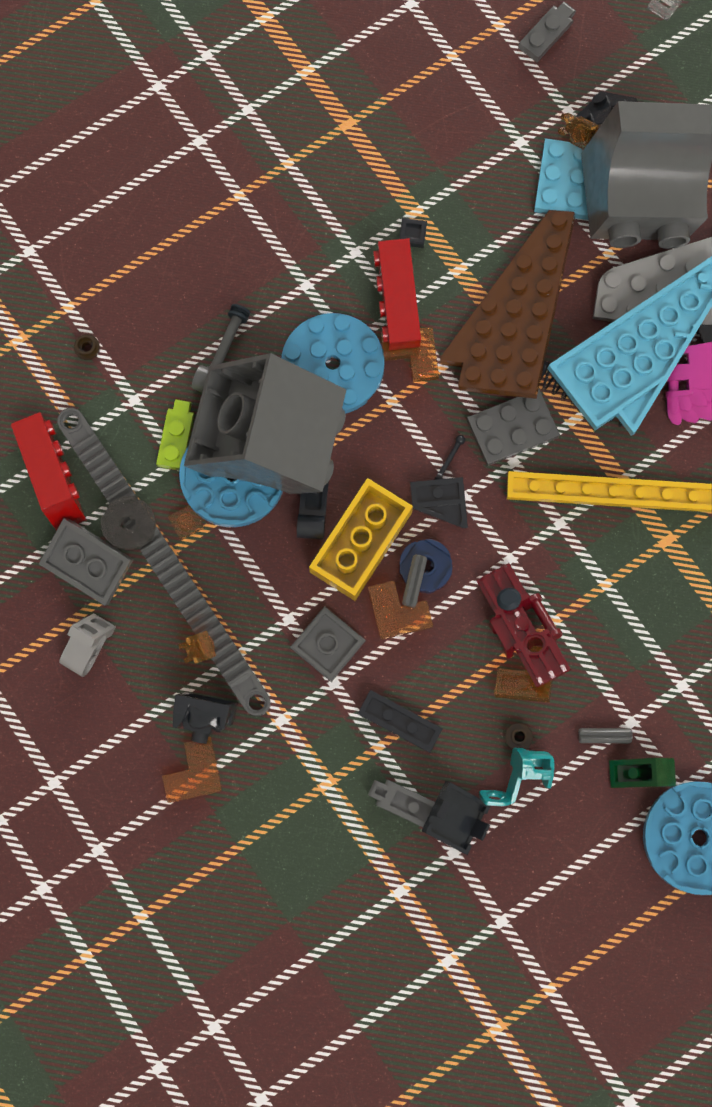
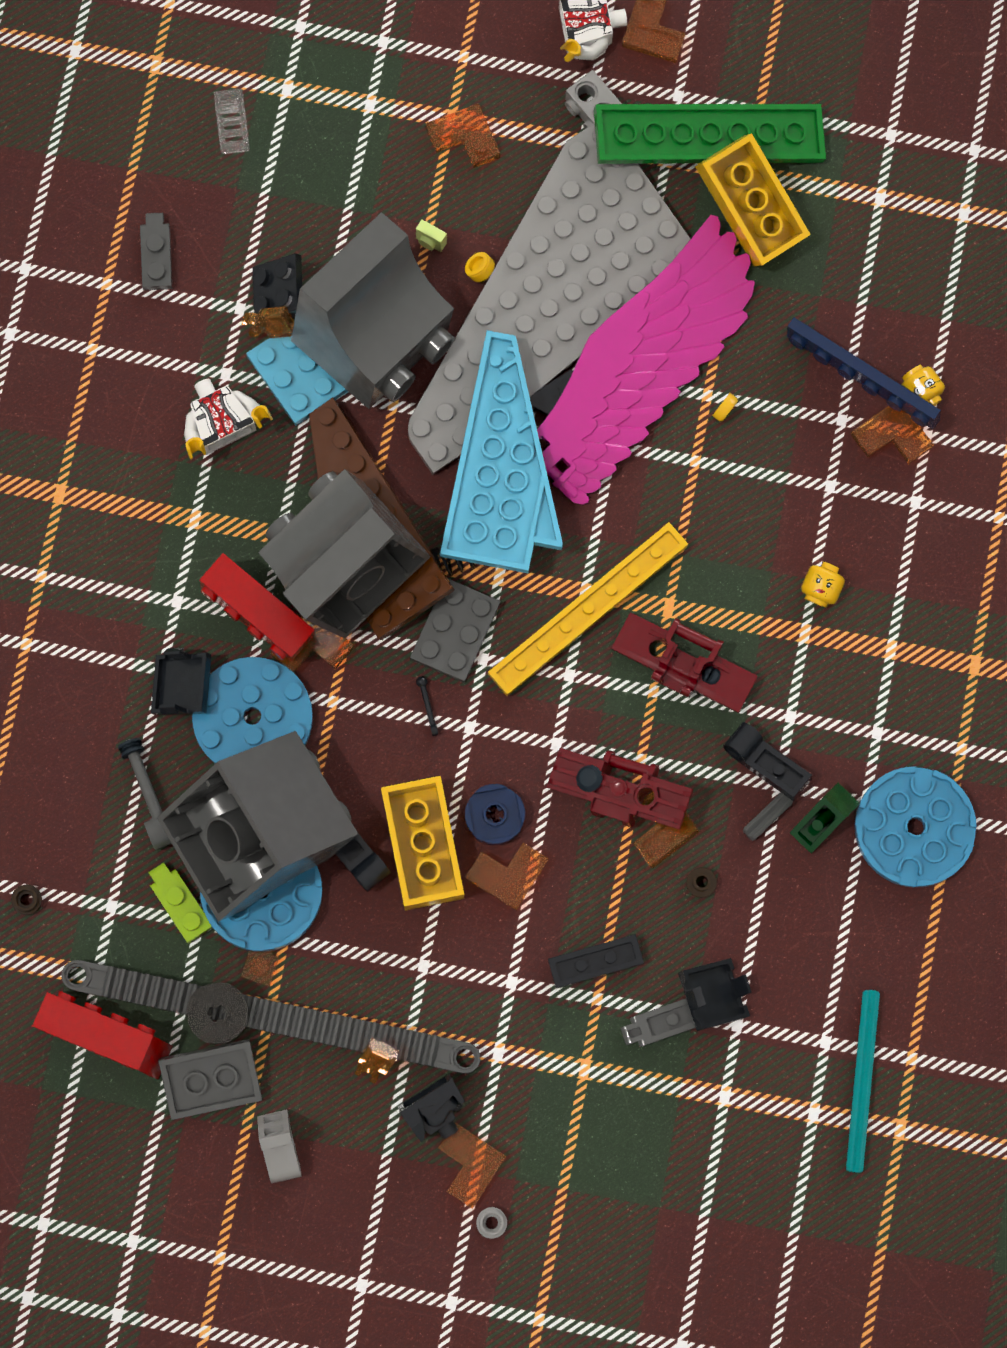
camera: 50 degrees left, 0 degrees up
(162, 824) = (481, 1222): none -> light grey plate
(307, 300) = (180, 683): none -> black piece
(327, 644) = (476, 955): dark grey tile -> none
(414, 230) = (211, 539): black tile -> none
(414, 580) = (499, 835): dark grey axle -> none
(441, 499) = (454, 747): black wing -> none
(483, 307) = (341, 553): none -> dark grey brick
(489, 162) = (220, 418): none -> torso
(501, 972) = (862, 1081): none -> teal axle
(523, 766) = (729, 905): teal piece -> none
(636, 589) = (680, 671): none -> dark red piece
(637, 699) = (766, 762): none -> black plate

